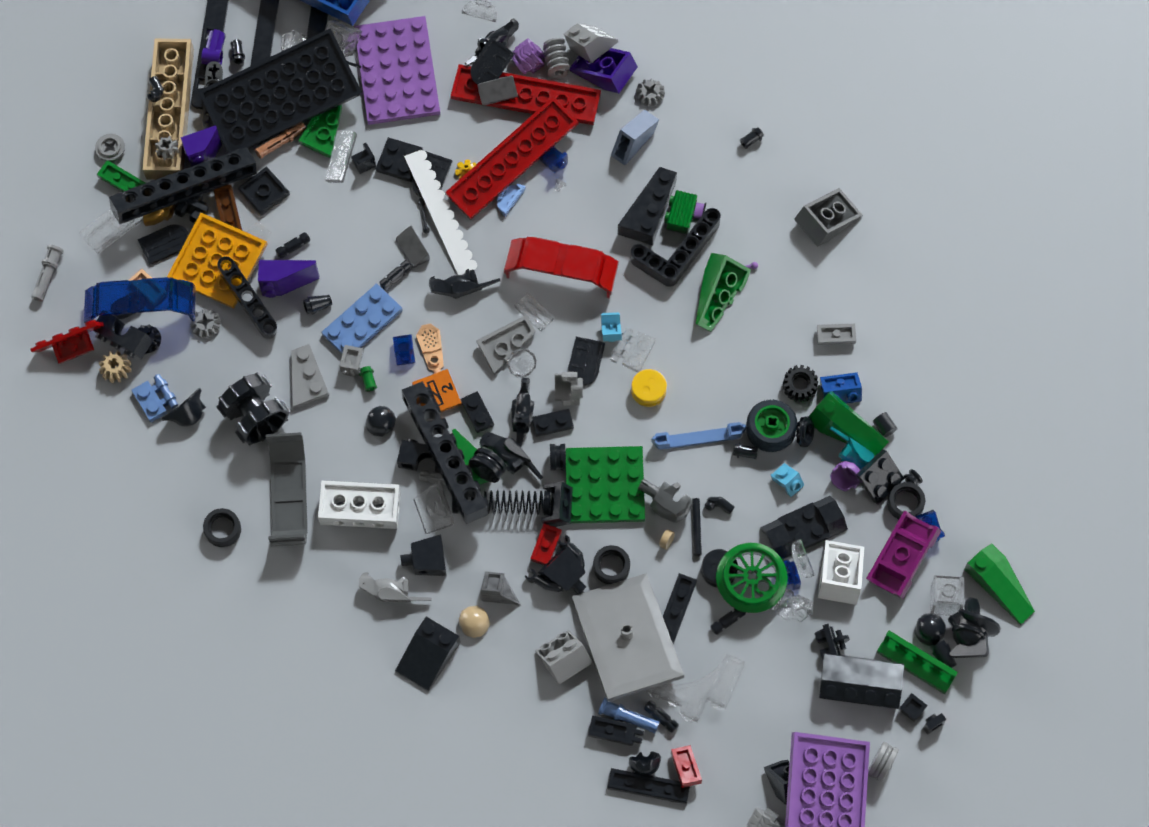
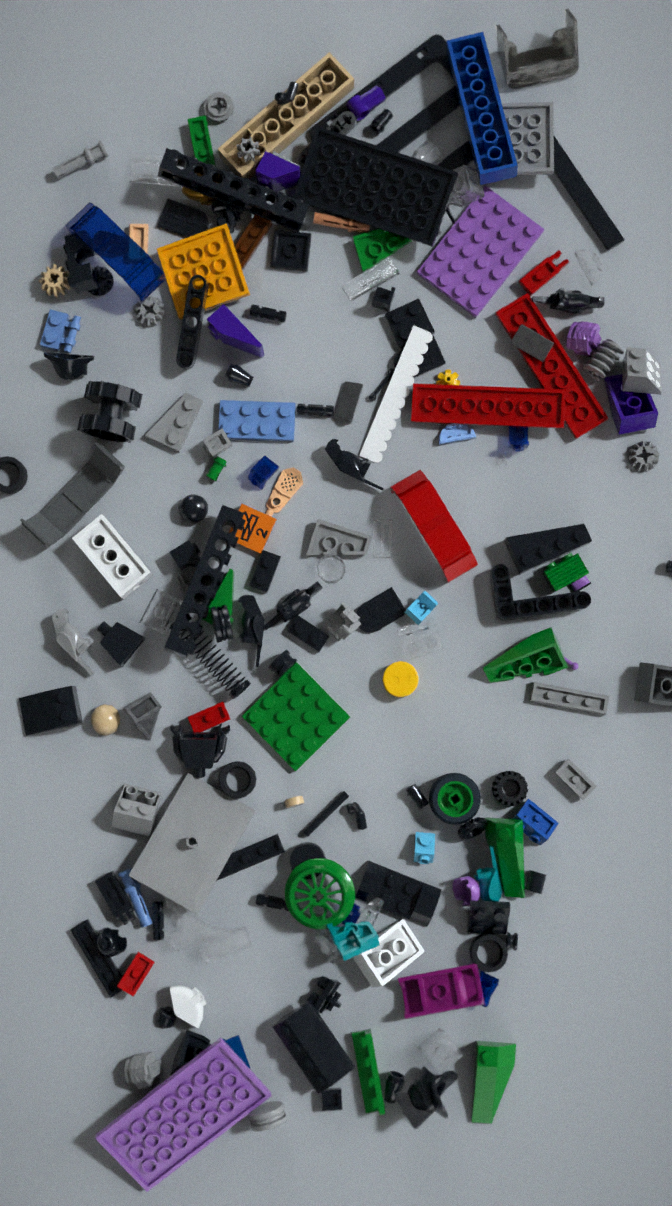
camera: 50 degrees right, 15 degrees up
(72, 344) = (41, 234): red bracket -> none
(455, 44) = (542, 274): none -> red hinge
(490, 62) = (549, 316): black window -> none
(560, 504) = (247, 701): black panel -> none
(634, 136) = (594, 479): sand blue slope -> none
(663, 500) = (319, 772): dark grey piece -> none
(666, 441) = (397, 751): medium blue piece -> none
(739, 777) = (166, 1017): none -> black piece
(745, 748) = (188, 1004): none -> white piece
(774, 289) = (569, 698): none -> light grey tile
(807, 579) = (353, 938): none -> teal slope
(930, 629) = (405, 1057): black hair -> none
(934, 722) = (333, 1125): black plate -> none

